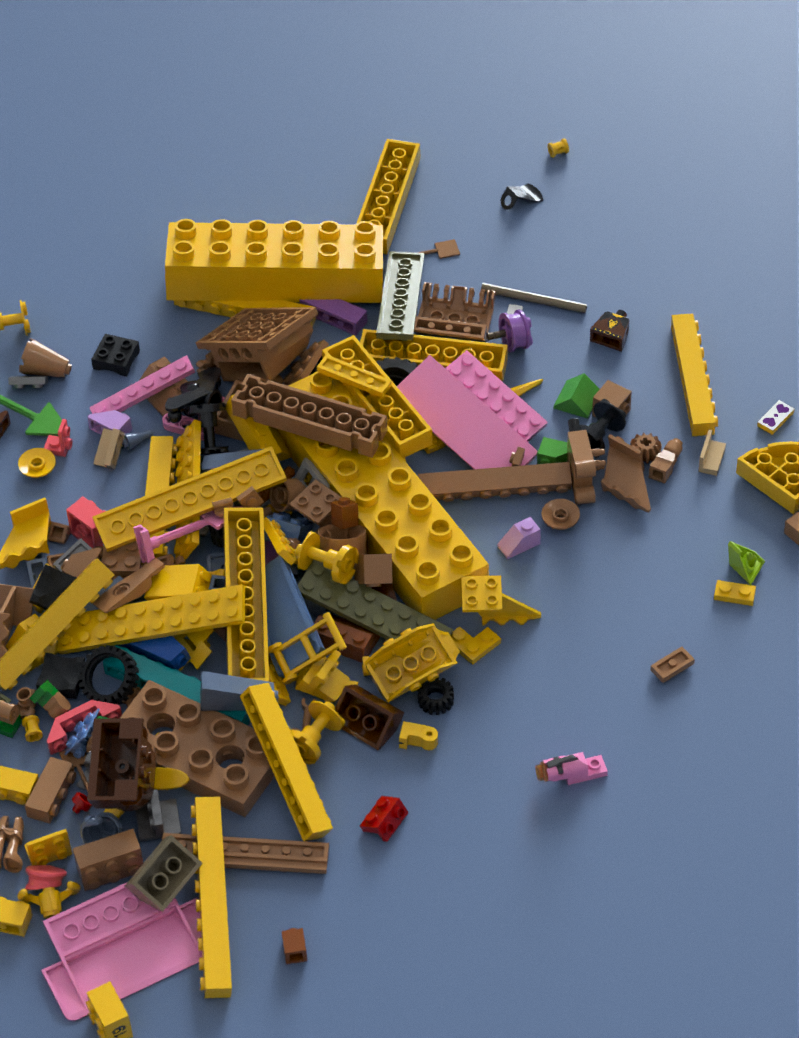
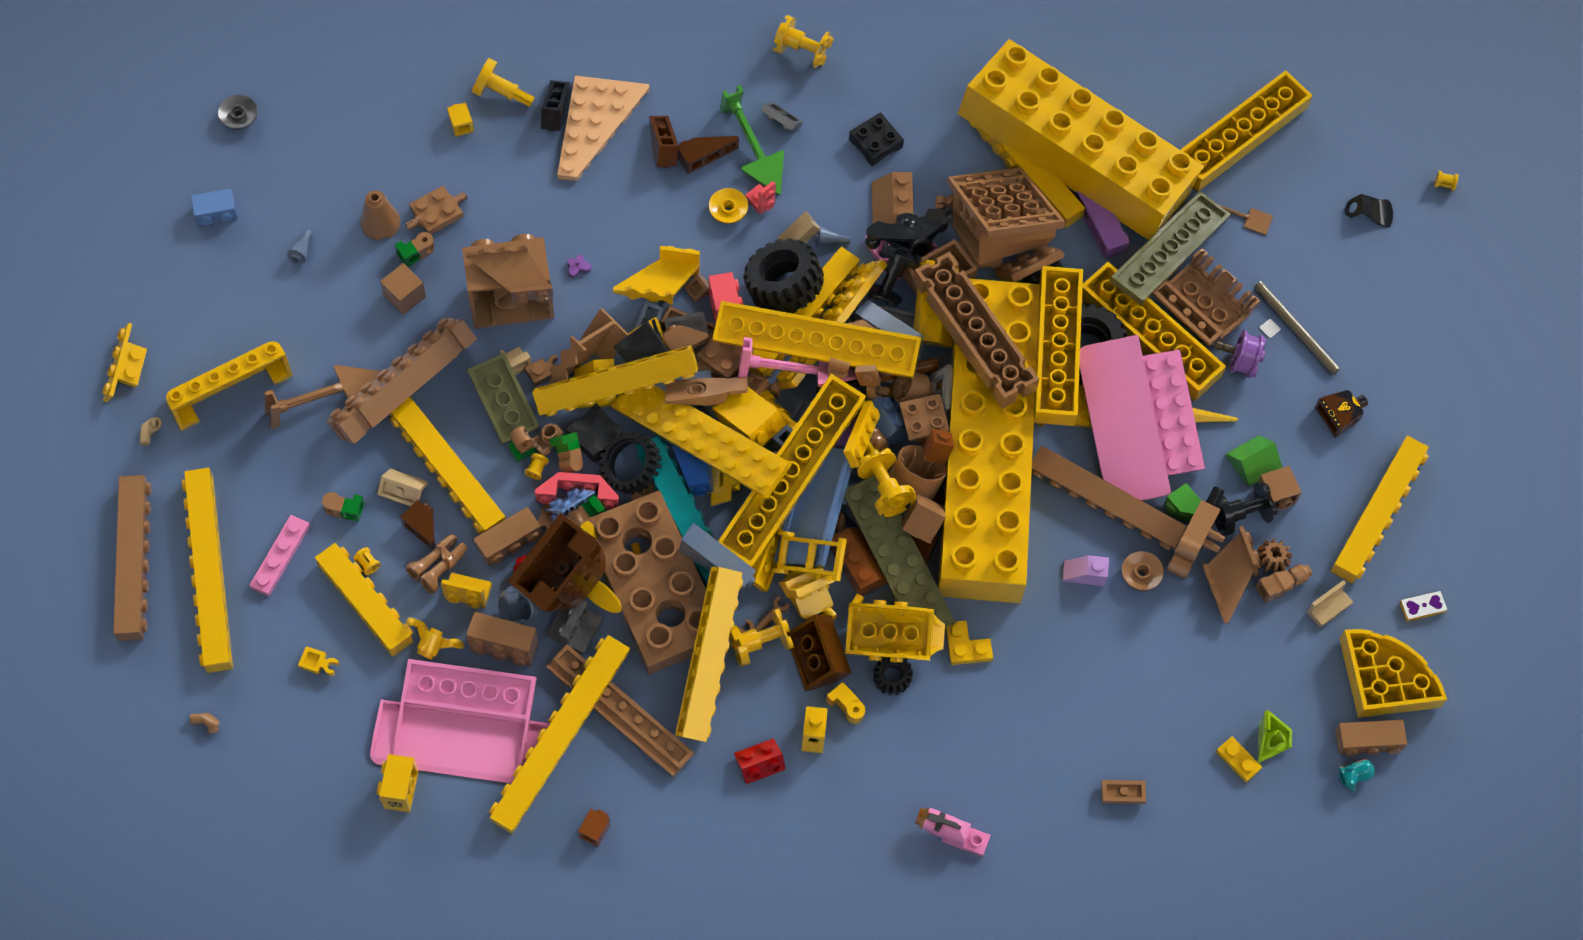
camera: 30 degrees right, 15 degrees up
(43, 361) = (807, 105): medium nougat cone -> none
(44, 876) = (442, 616): coral hat -> none
(109, 420) = (820, 208): lavender slope -> none
(115, 465) = (775, 261): none -> black tyre
(146, 387) = (868, 193): bright pink plate -> none
(163, 874) = (529, 688): dark tan slope -> none
(354, 376) = (1047, 314): yellow plate -> none
(405, 761) = (814, 728): none -> yellow torso
(486, 598) = (998, 614): yellow piece -> none
(517, 458) = (1144, 489): medium nougat plate -> none

